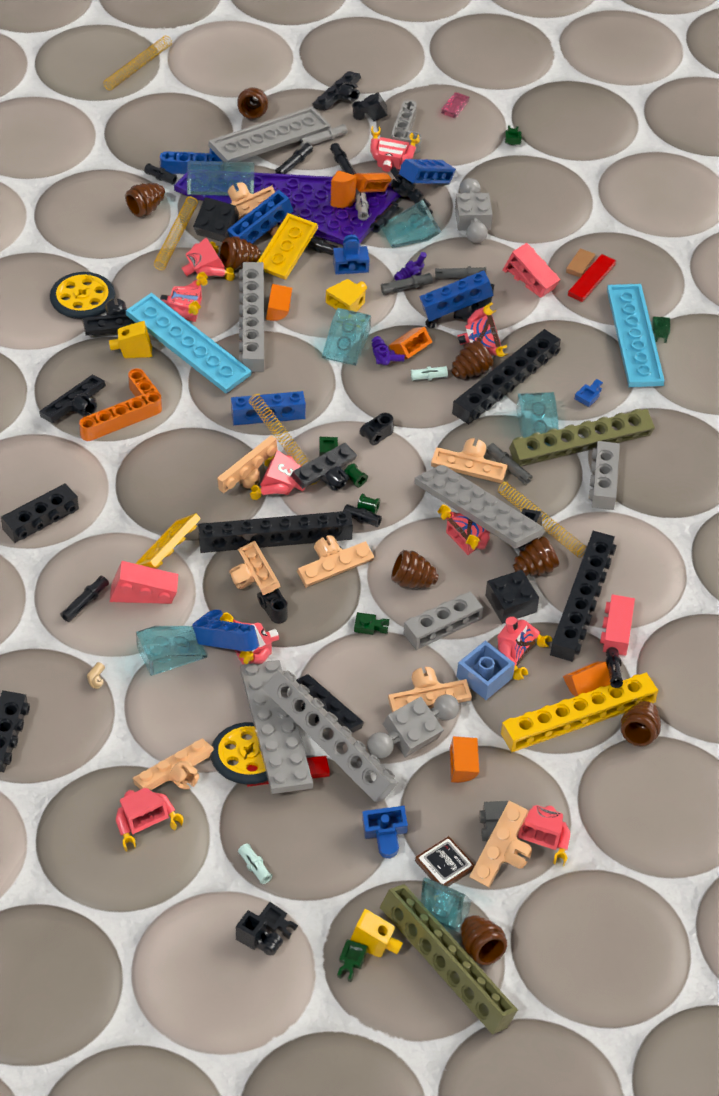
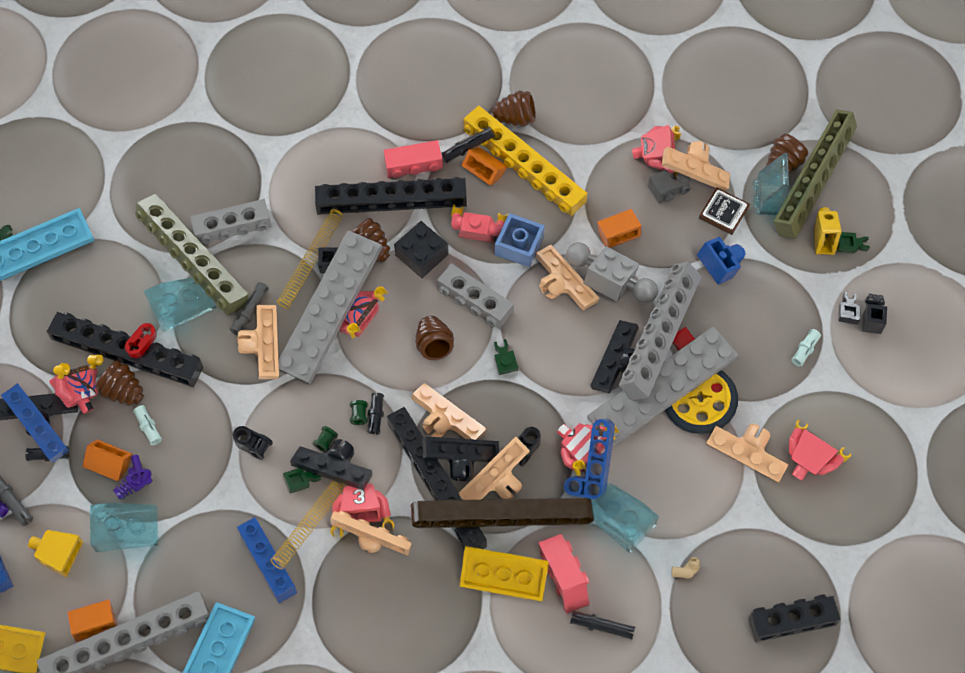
camera: 110 degrees left, 15 degrees up
(214, 552) = (501, 512): none -> dark brown beam
(287, 547) = (460, 453): none -> black plate
(502, 379) = (140, 340): none -> red beam
(589, 394) = (121, 270): blue plate -> none

